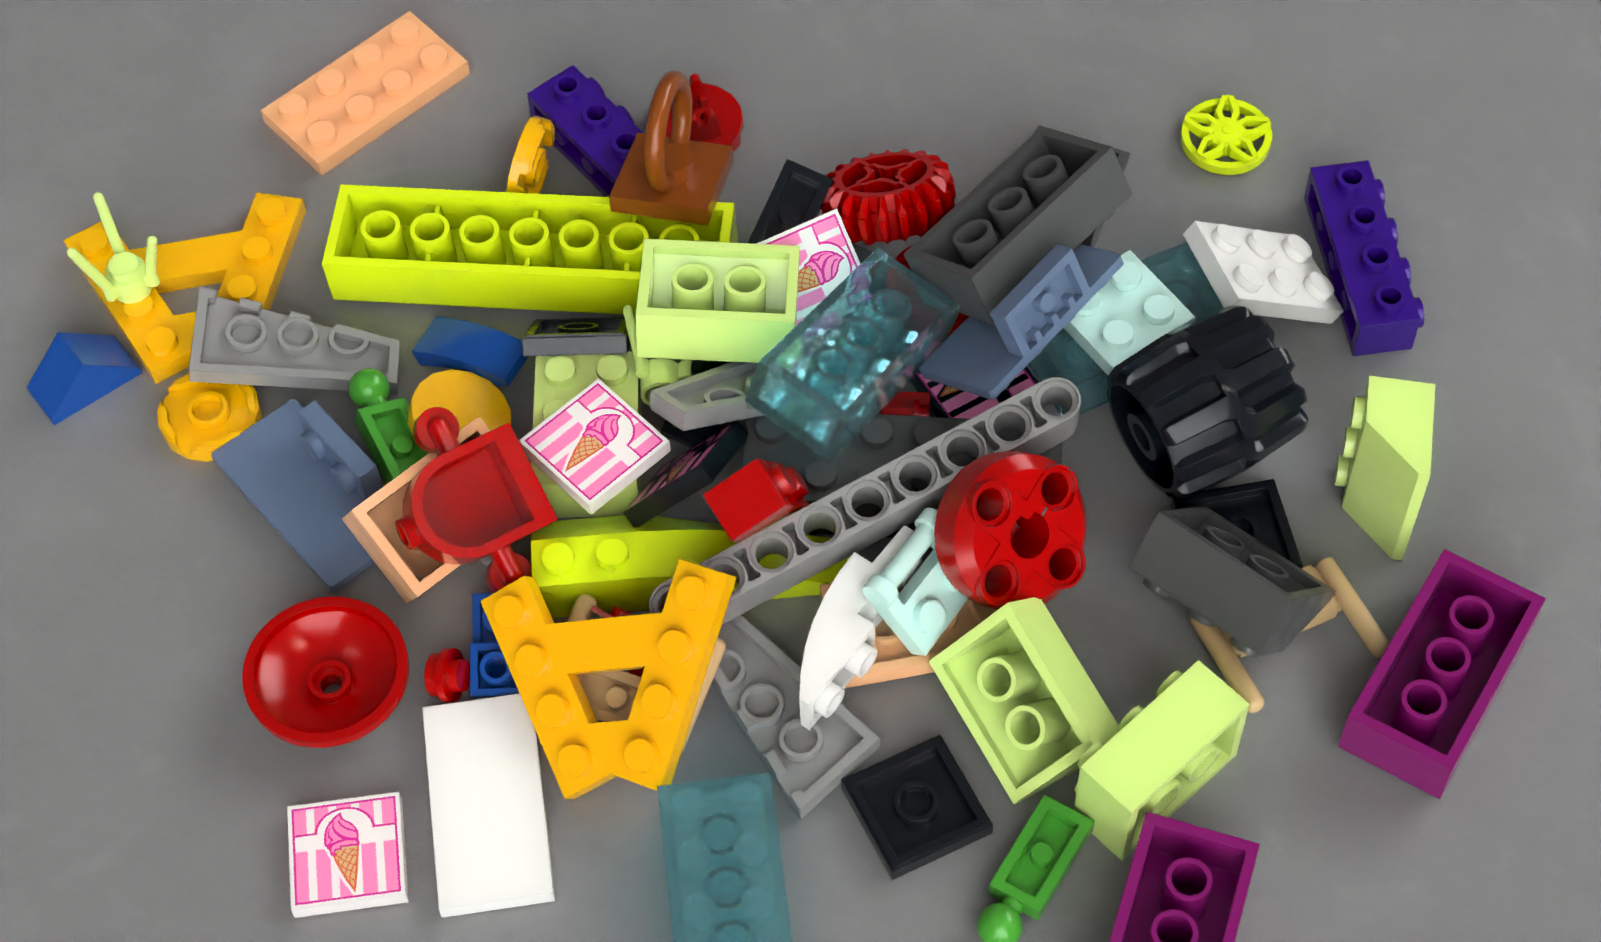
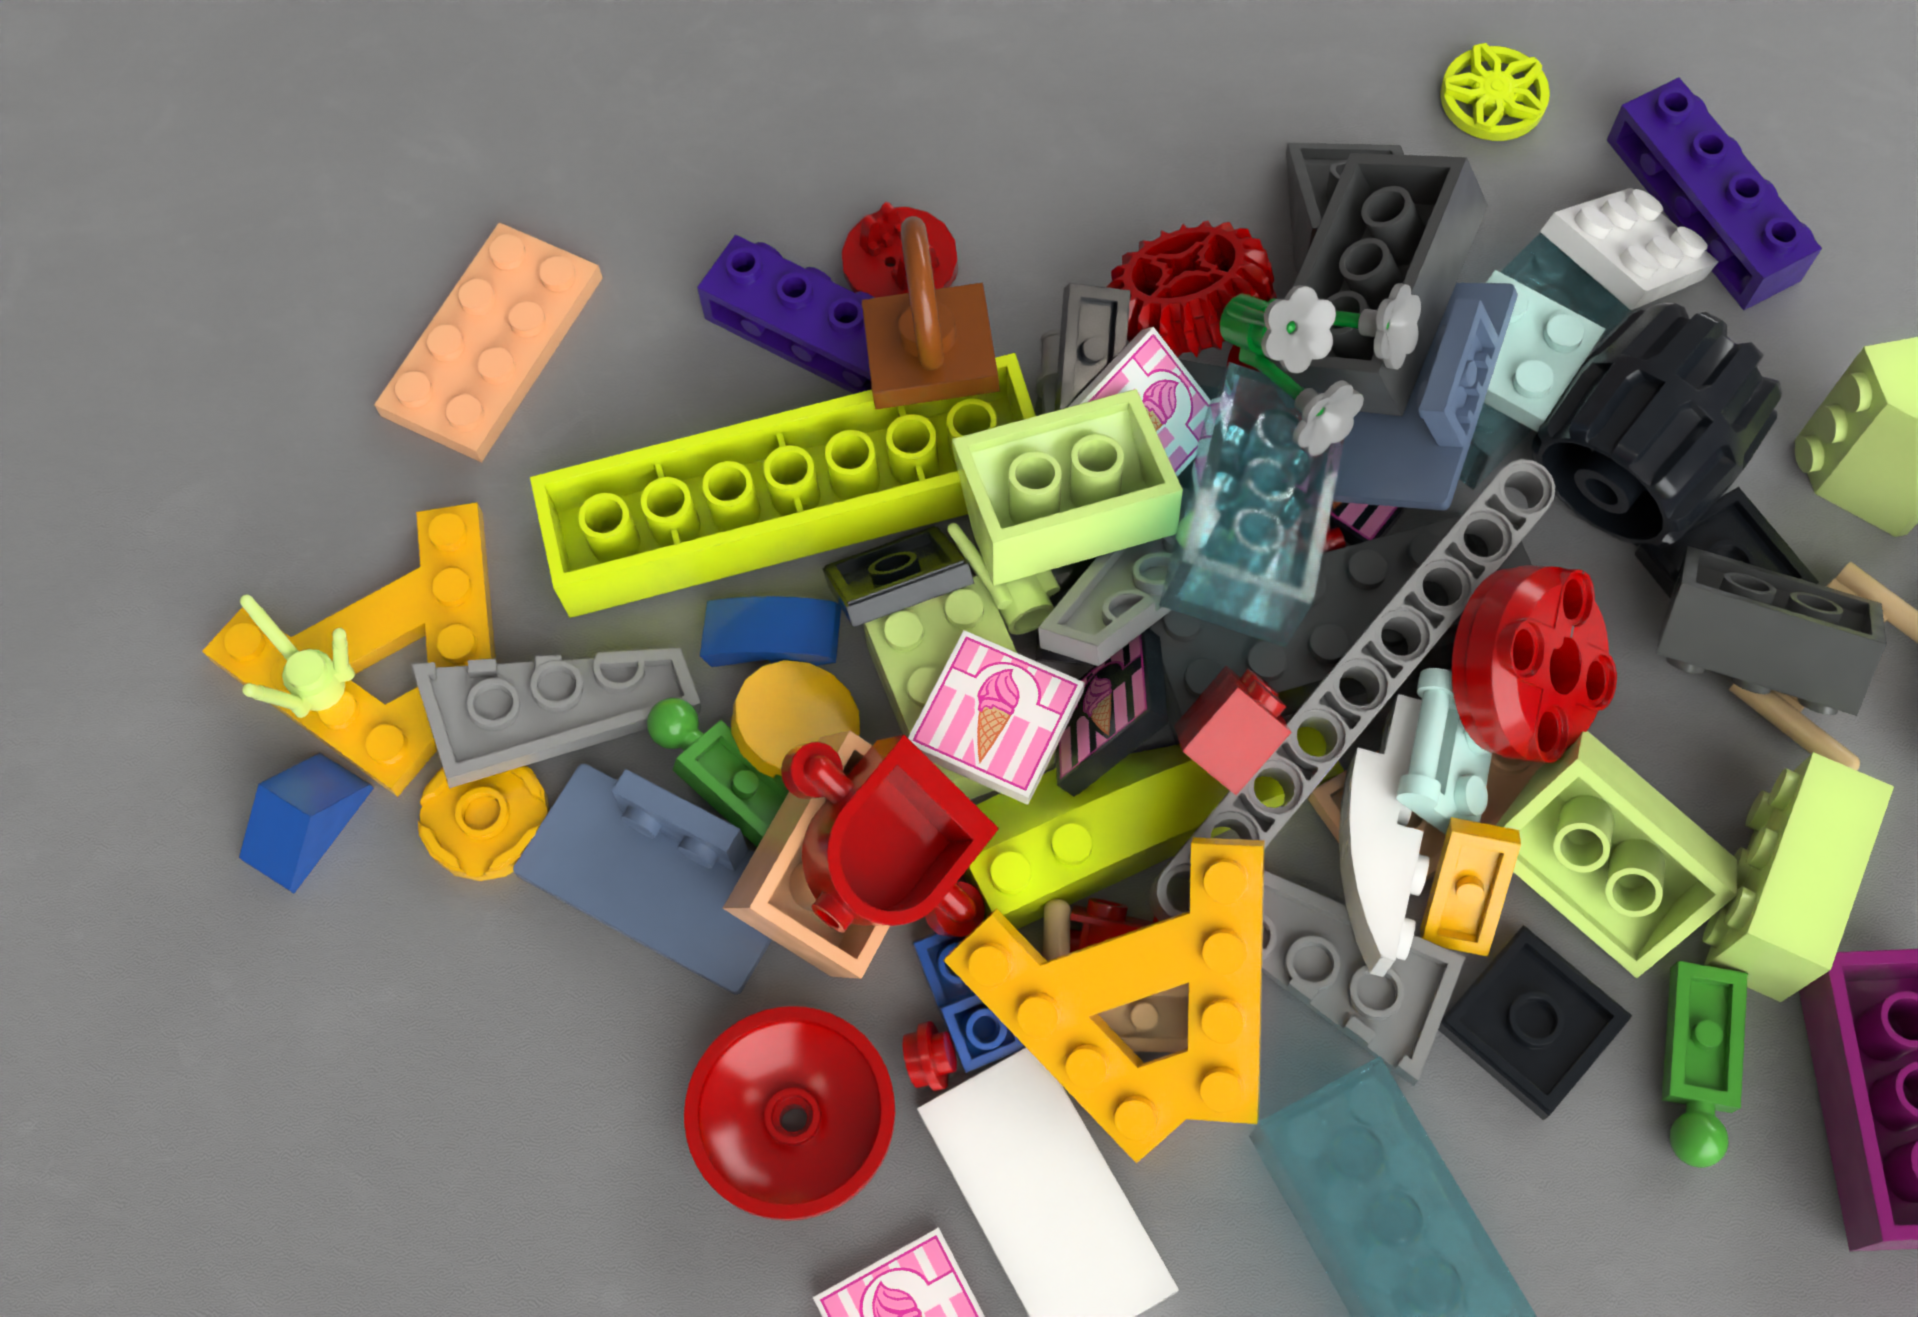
camera: 20 degrees left, 10 degrees up
(529, 161) = (741, 368): yellow tile -> none
(903, 685) = (1470, 886): none -> yellow plate
(910, 223) = (1298, 331): none -> light grey plant

